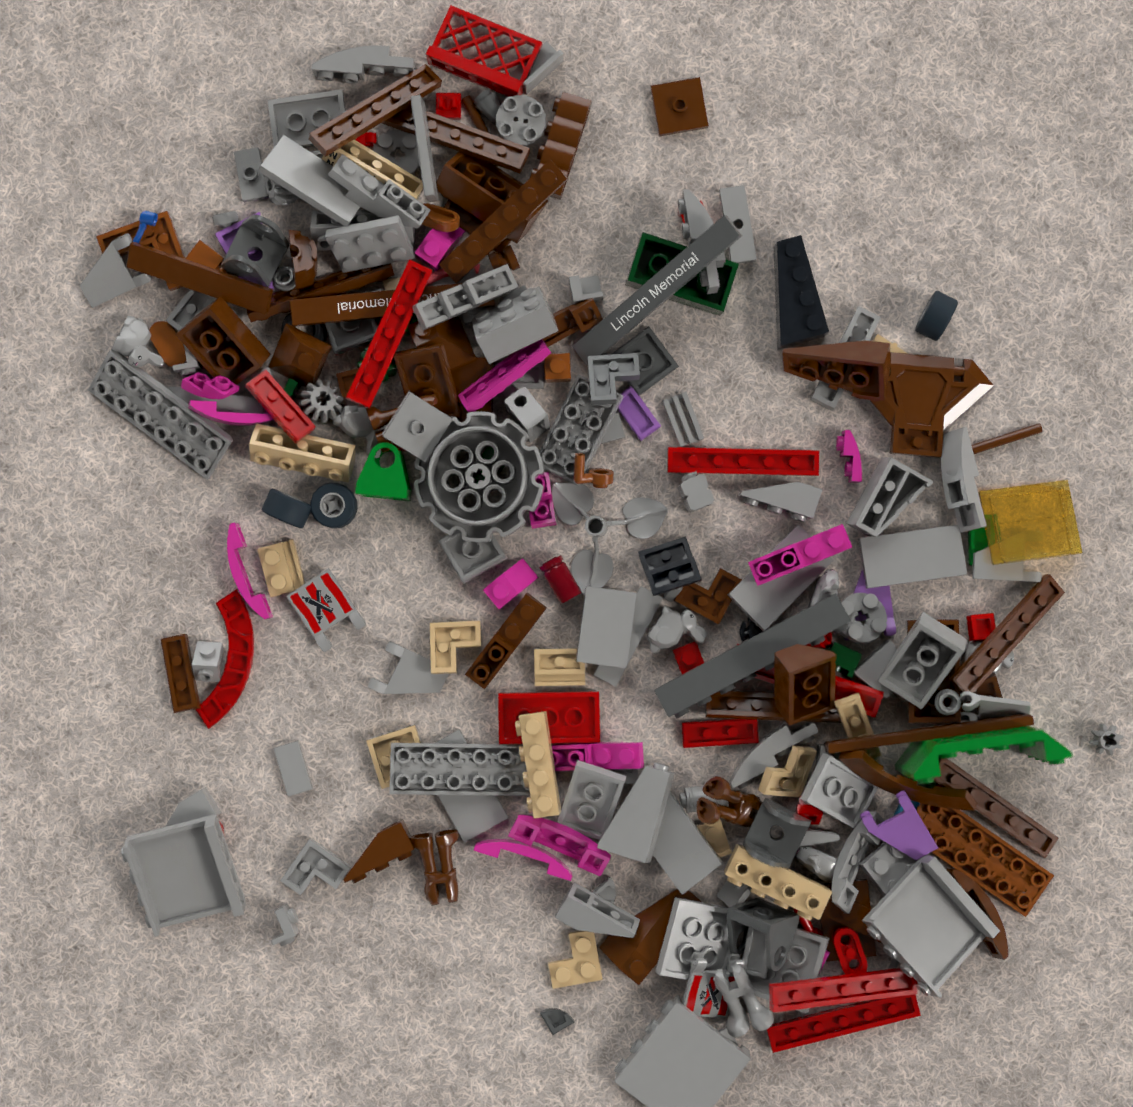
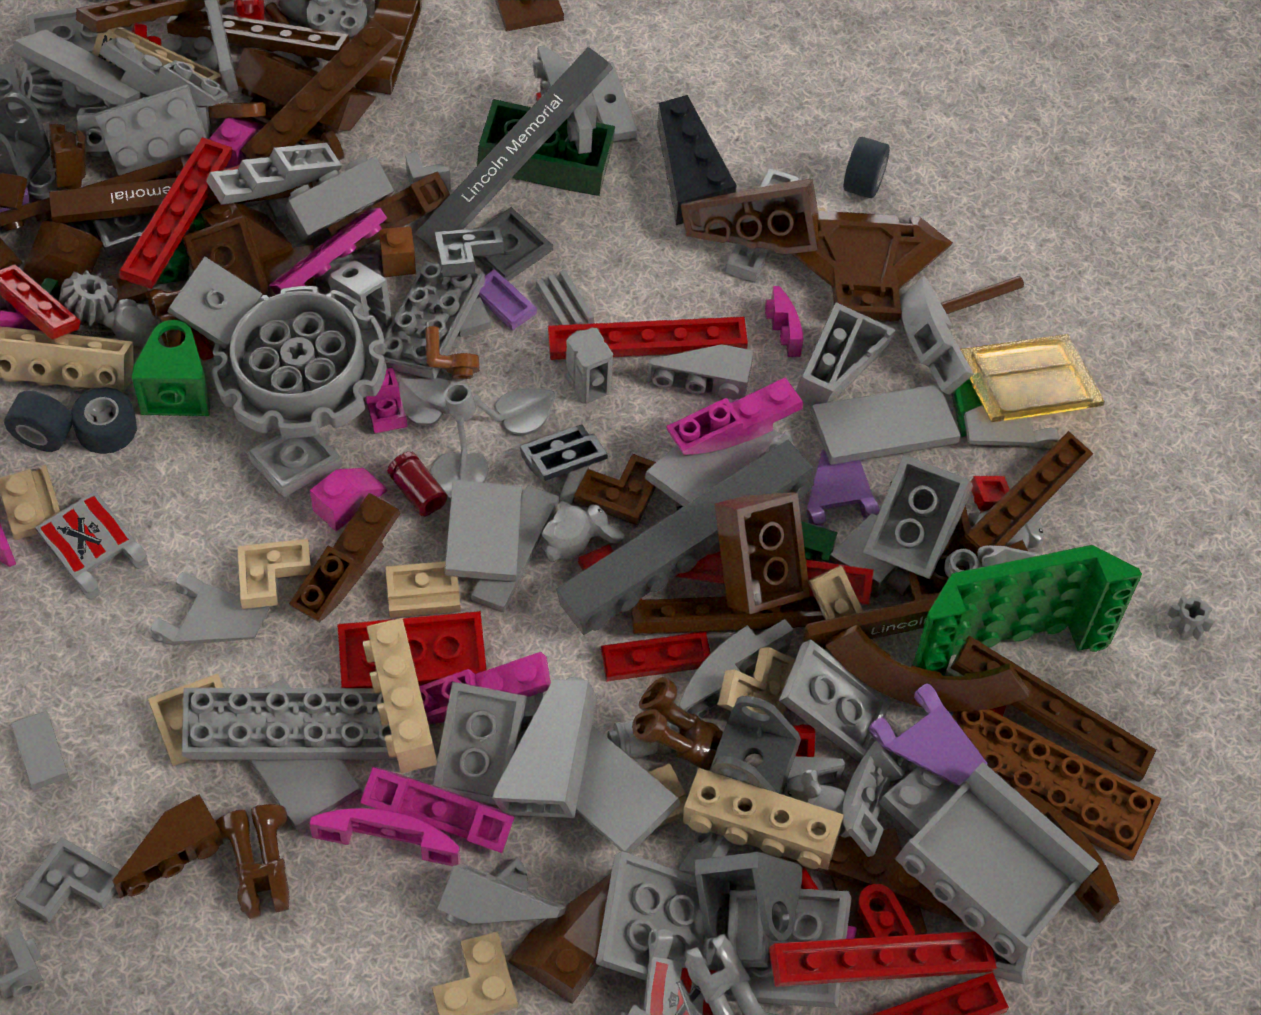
camera: 15 degrees left, 30 degrees down
(874, 624) = (843, 486): light grey plate -> none

